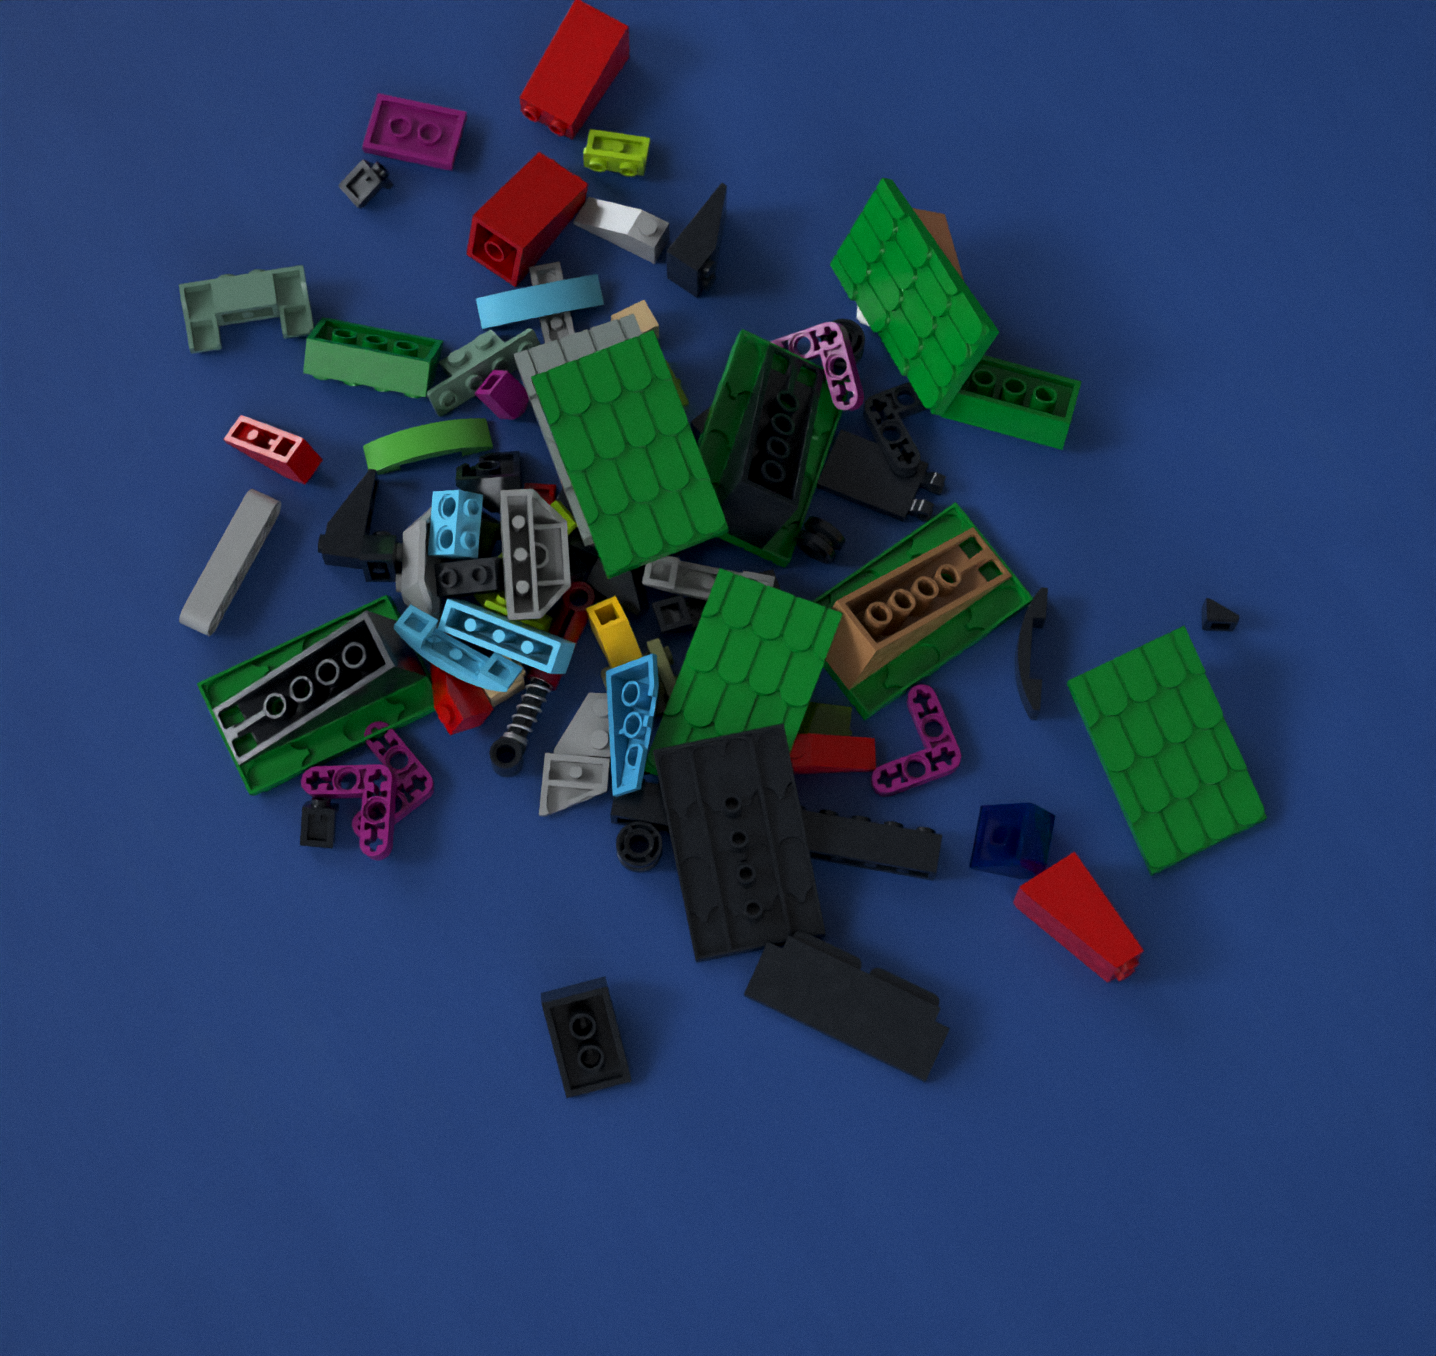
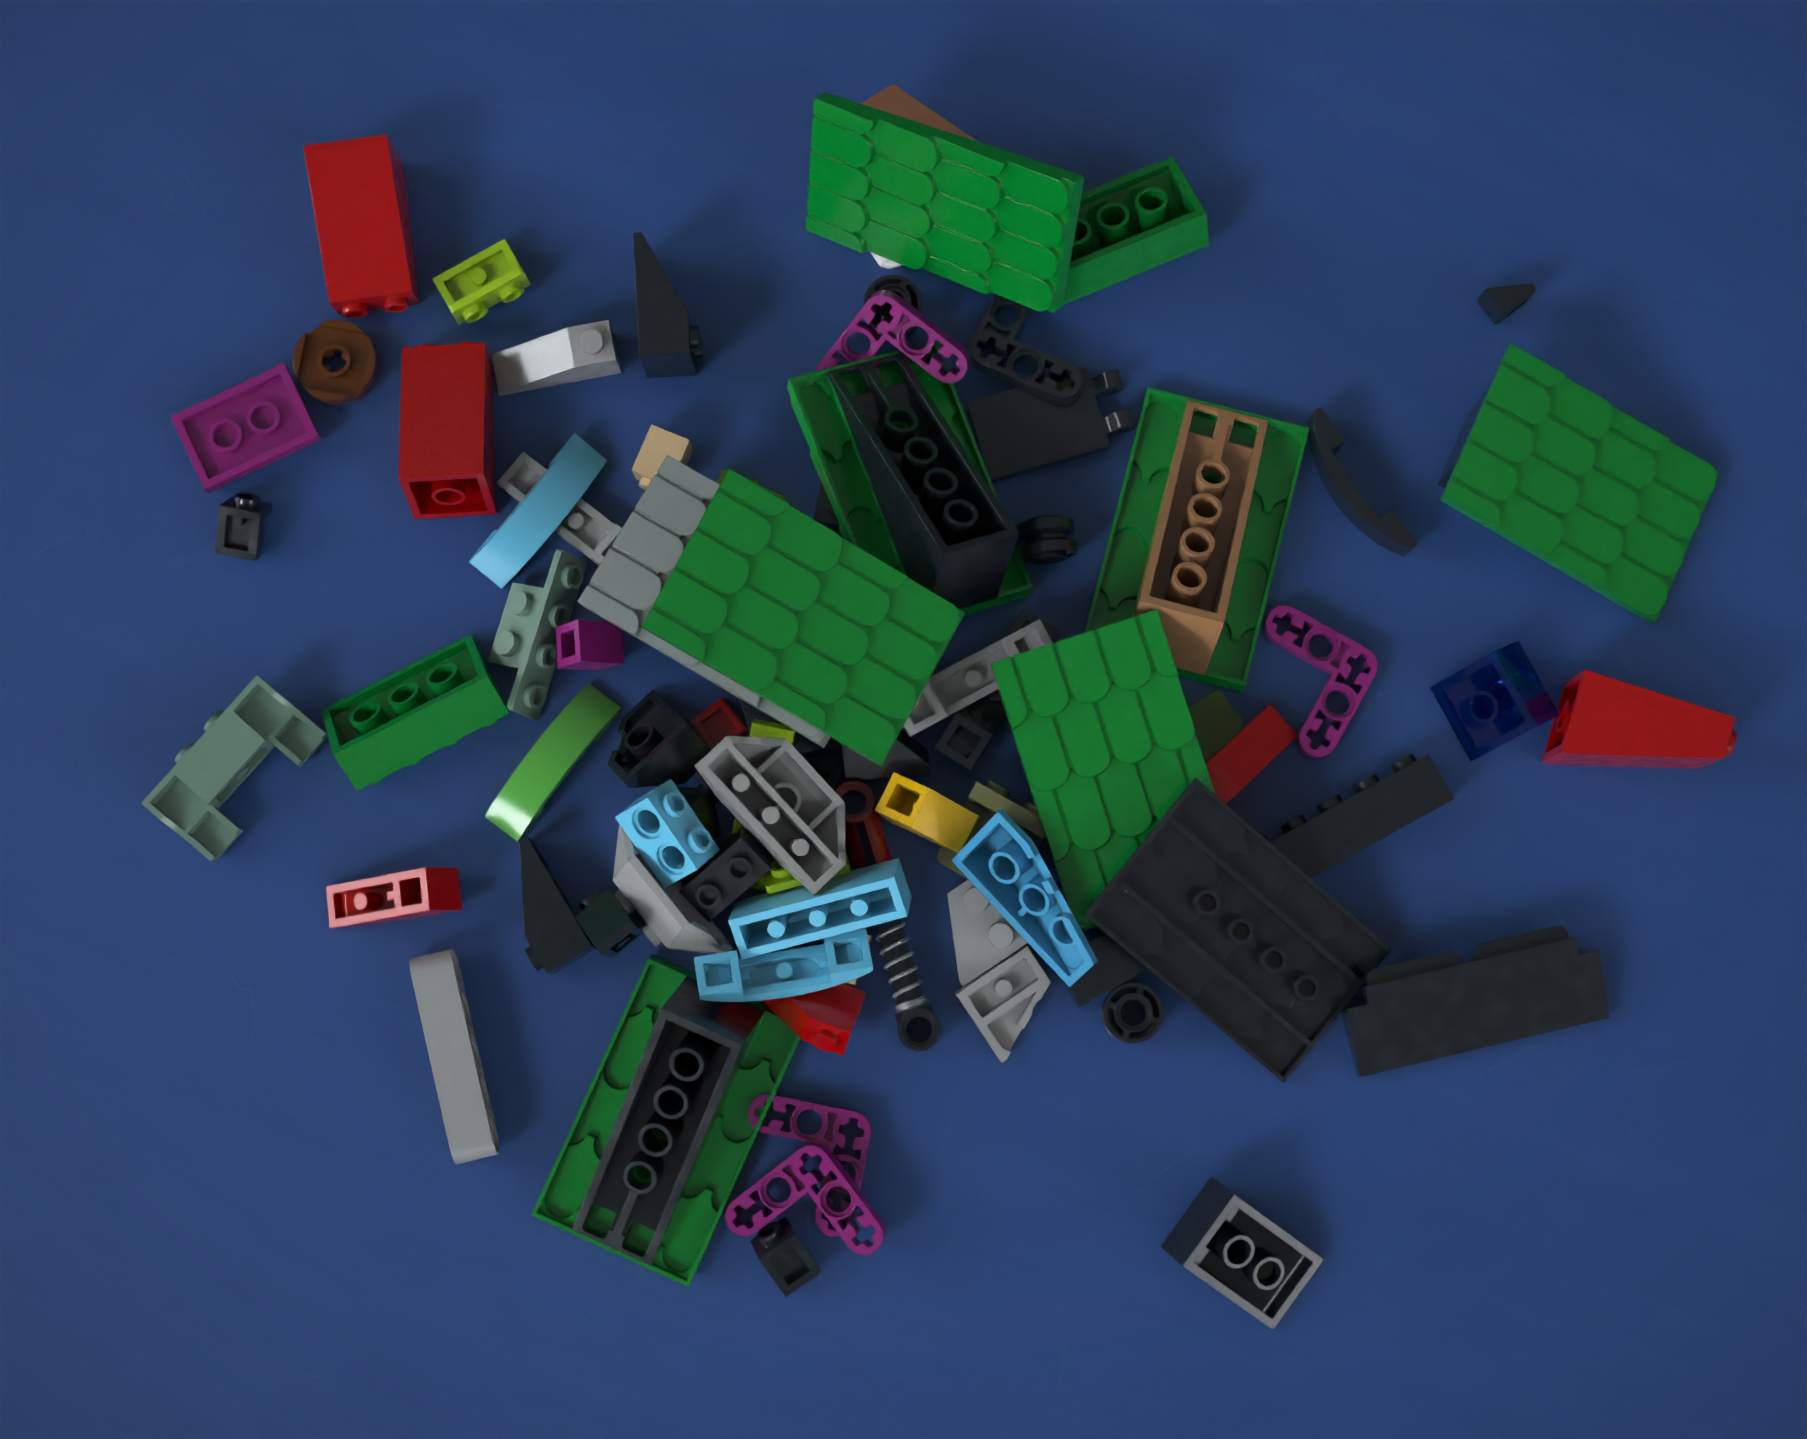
camera: 35 degrees left, 10 degrees up
(501, 150) = (322, 344): none -> reddish brown plate

